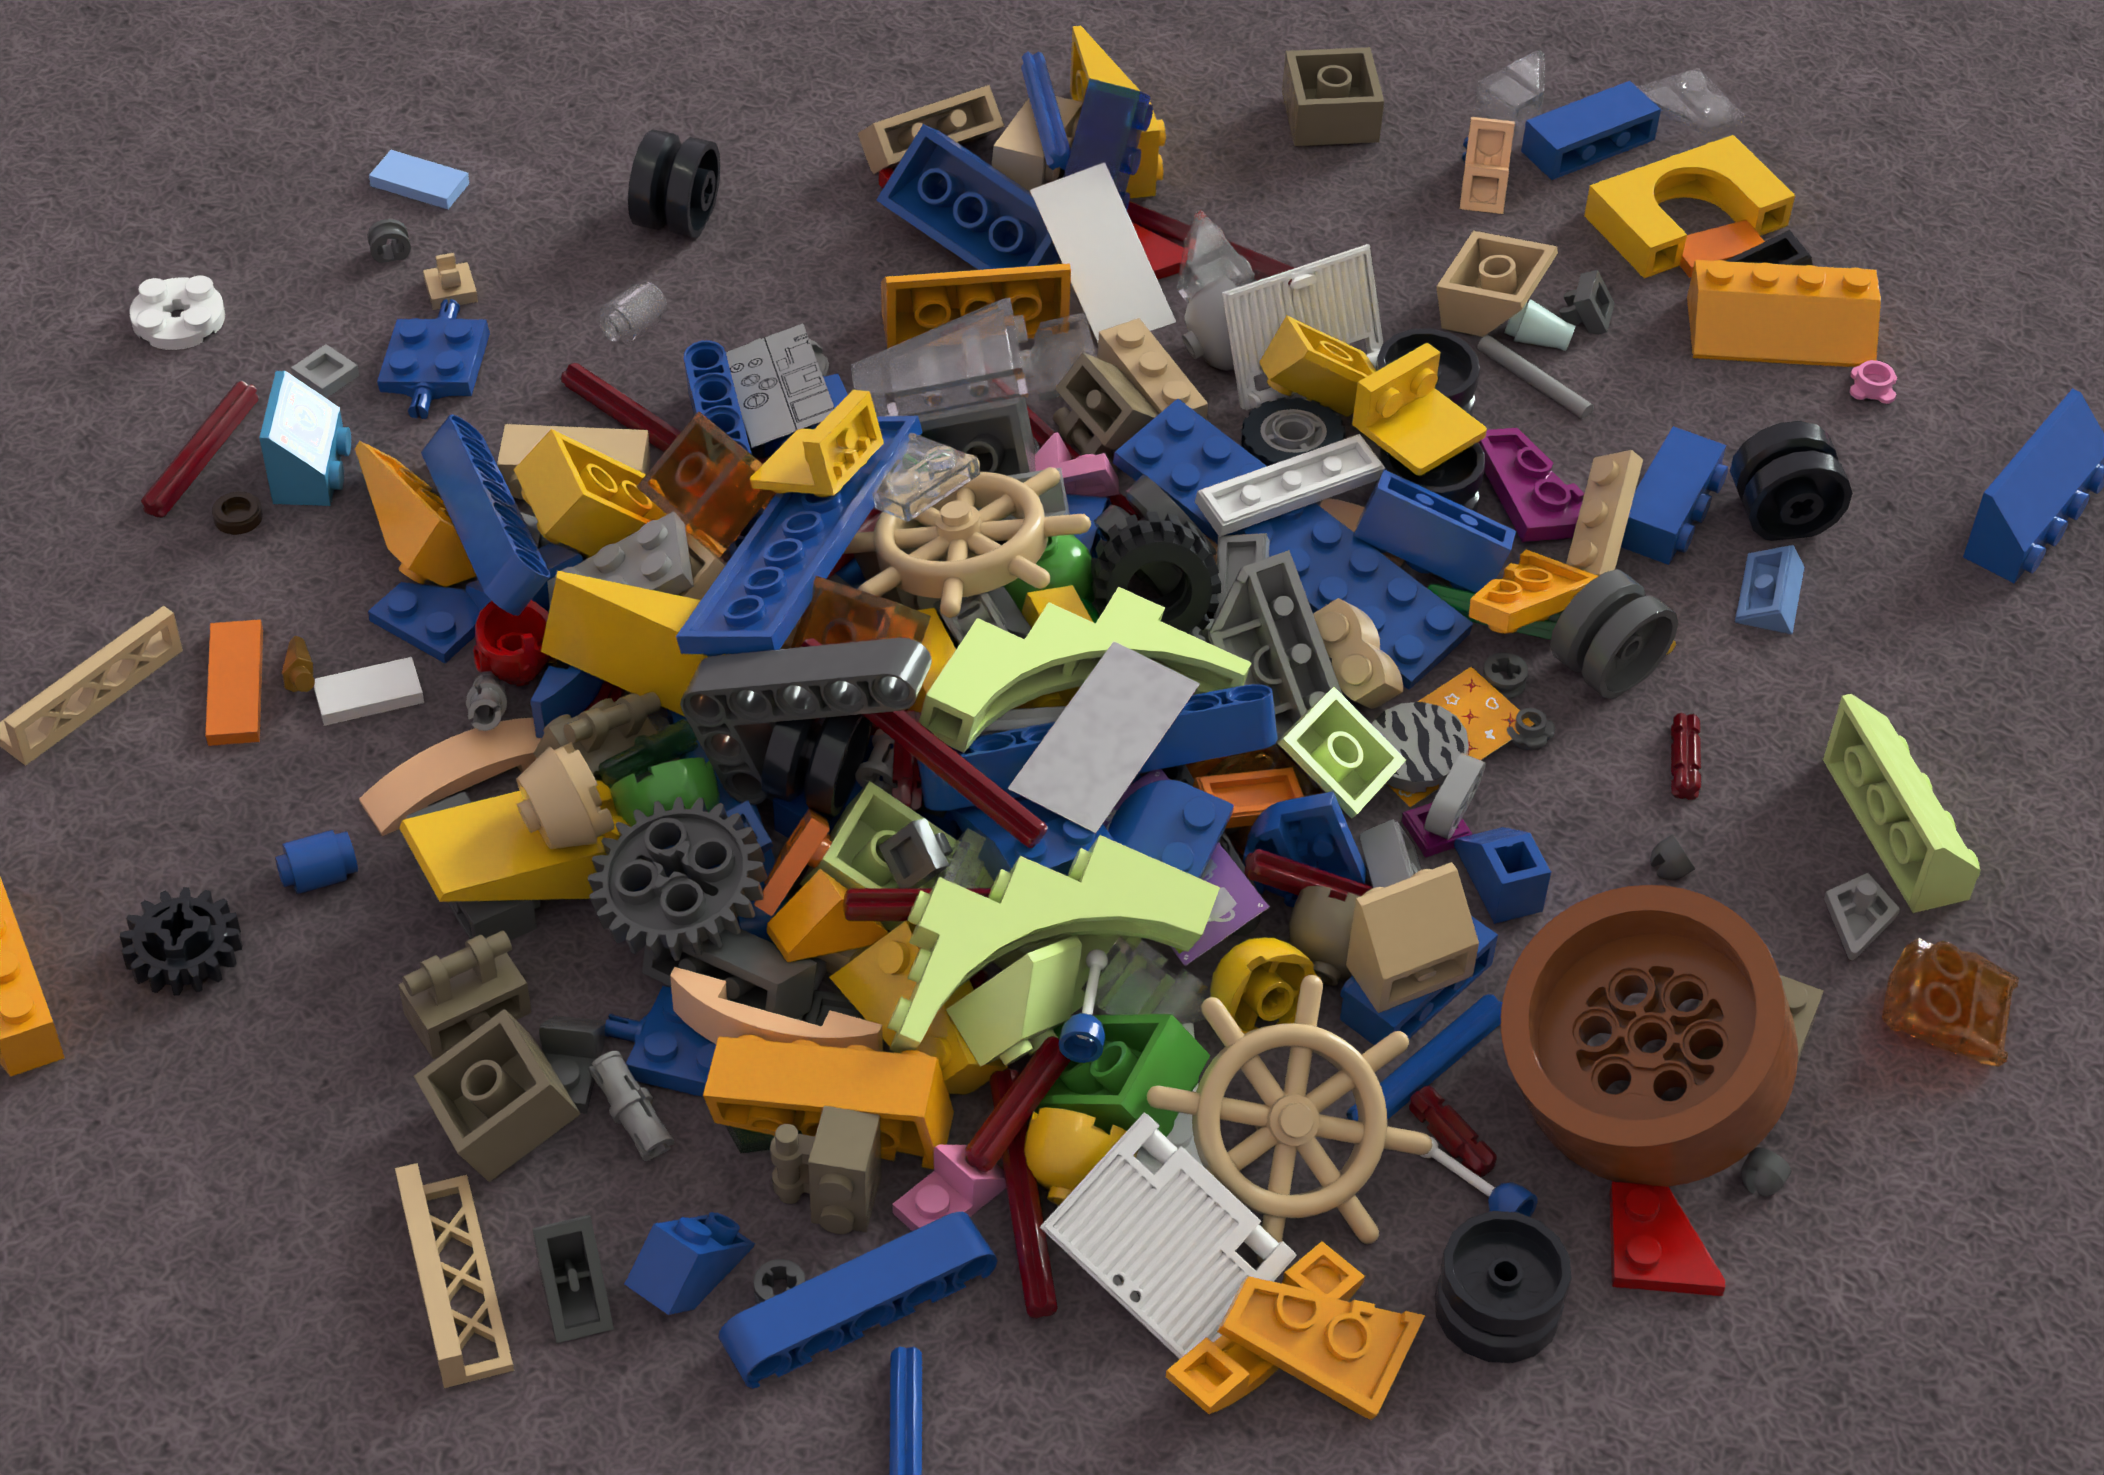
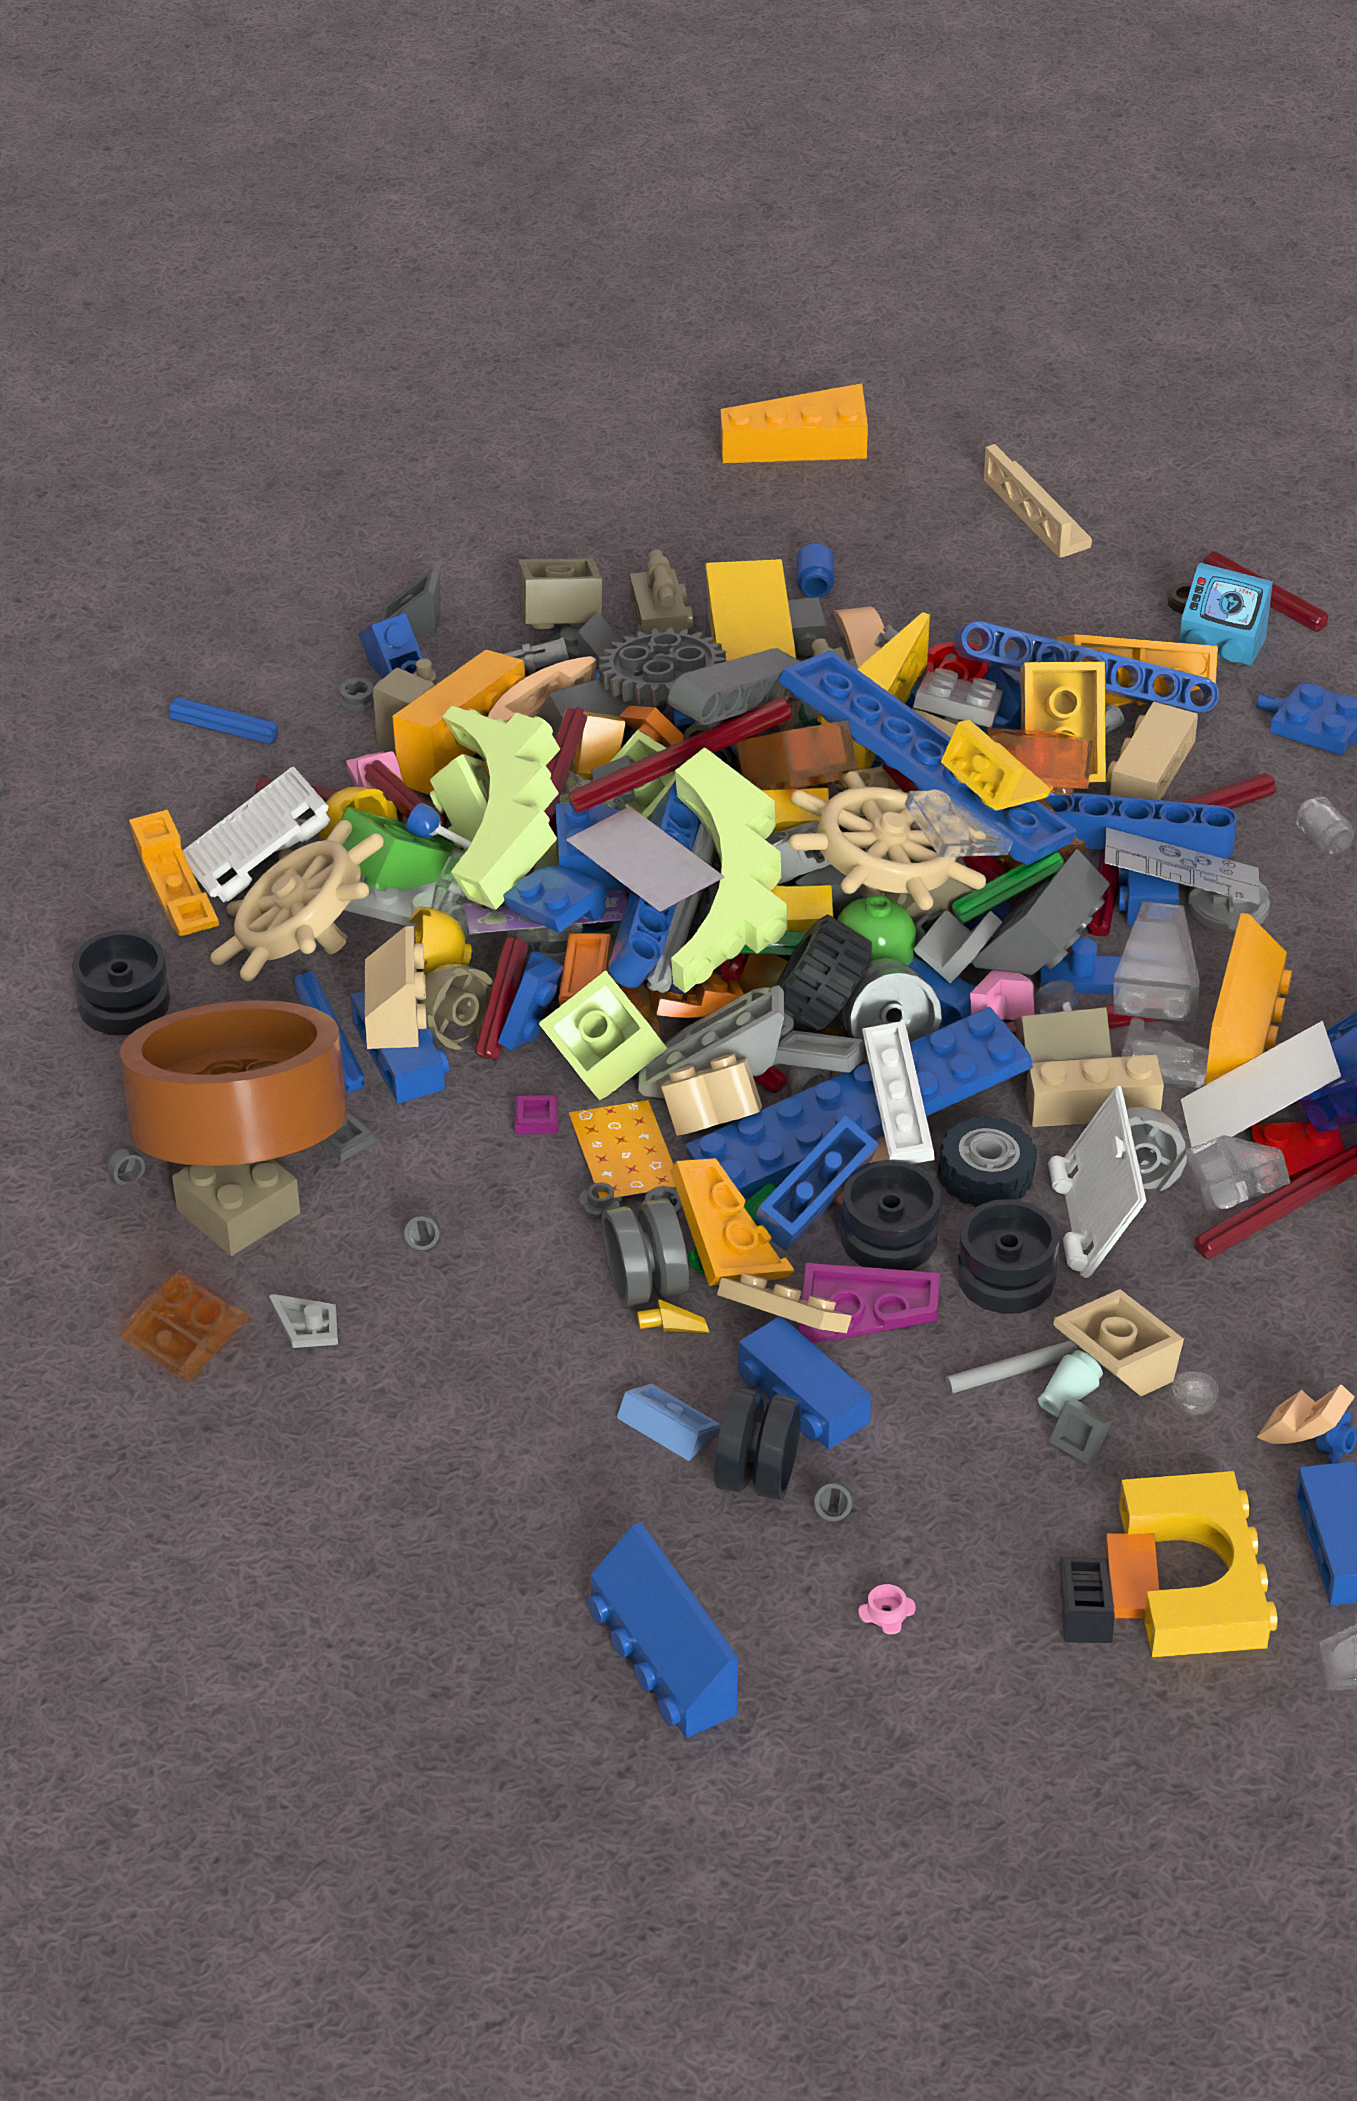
camera: 115 degrees right, 5 degrees down
(181, 941) = (779, 506): black gear -> none
(234, 682) = (1011, 570): orange tile -> none
(298, 667) = (1007, 598): pearl gold bar -> none
(325, 371) = (1329, 663): light grey tile -> none
(368, 691) = (968, 611): white tile -> none
(432, 1281) = (455, 561): tan fence -> none
(562, 799) = (745, 615): tan cone -> none
(856, 1296) = (322, 719): blue beam -> none
(1315, 366) = (1039, 1165): yellow slope -> none
(1323, 1341) = (146, 888): light orange wing -> none
(1389, 854) = (495, 1068): light grey slope -> none
(1411, 417) = (928, 1180): yellow bracket -> none
(1426, 738) = (614, 1121): light grey tile -> none
(1454, 796) = (541, 1107): light grey beam -> none
(1506, 871) = (464, 1115): blue slope -> none
(1657, 1244) = (95, 1091): red wing -> none
(1685, 756) = (520, 1283): dark red axle -> none
(1783, 313) = (1002, 1569): light orange slope -> none
(1898, 808) = (376, 1361): yellowish green slope -> none

